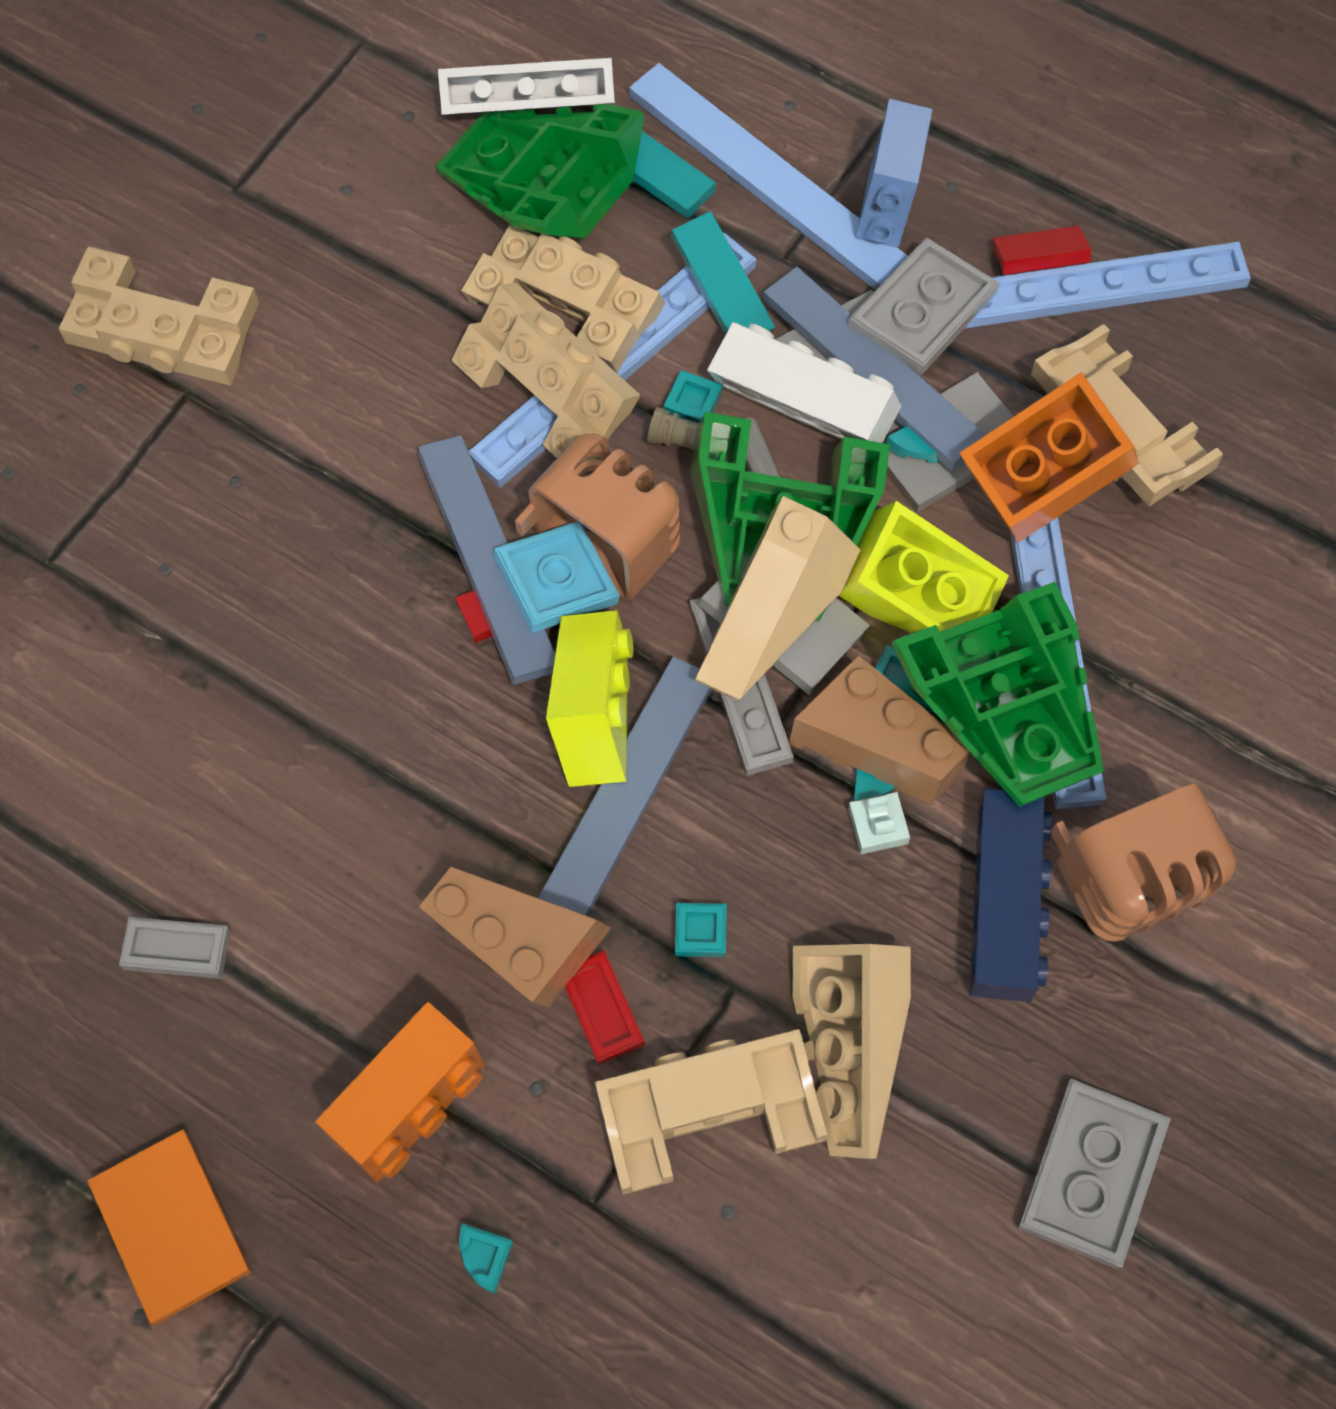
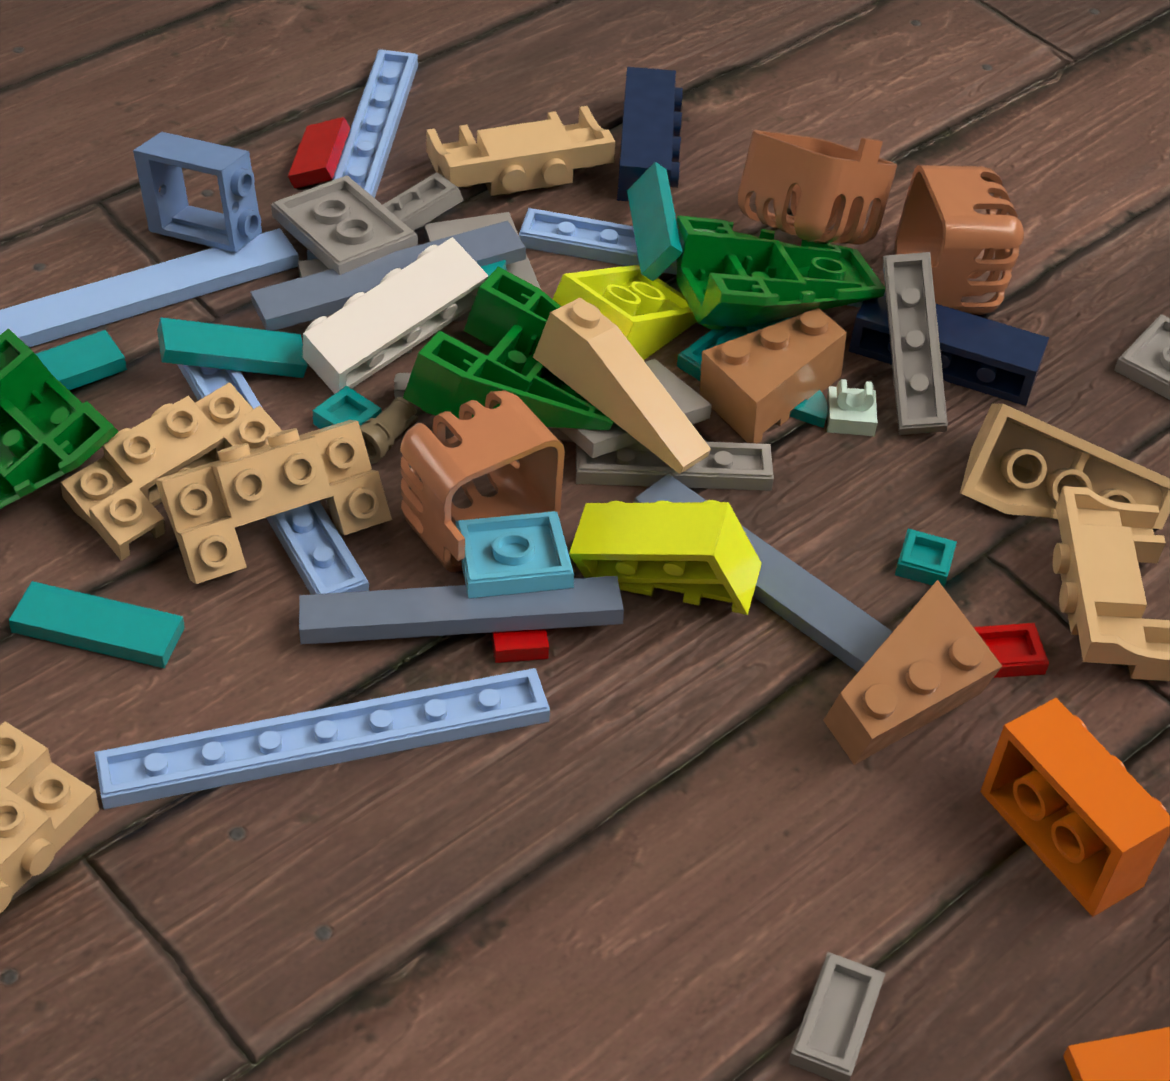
camera: 80 degrees left, 20 degrees down
(339, 511) = (319, 738): none -> light blue tile
(393, 312) = (97, 624): none -> teal tile
(967, 852) = (914, 344): none -> light grey tile
(991, 356) = (425, 201): none -> light grey plate
(1050, 457) = (562, 178): orange brick -> none
(1055, 566) = (654, 222): none -> teal tile
(1119, 694) = (825, 183): none -> nougat piece
(1220, 526) = (649, 126): none -> dark blue brick

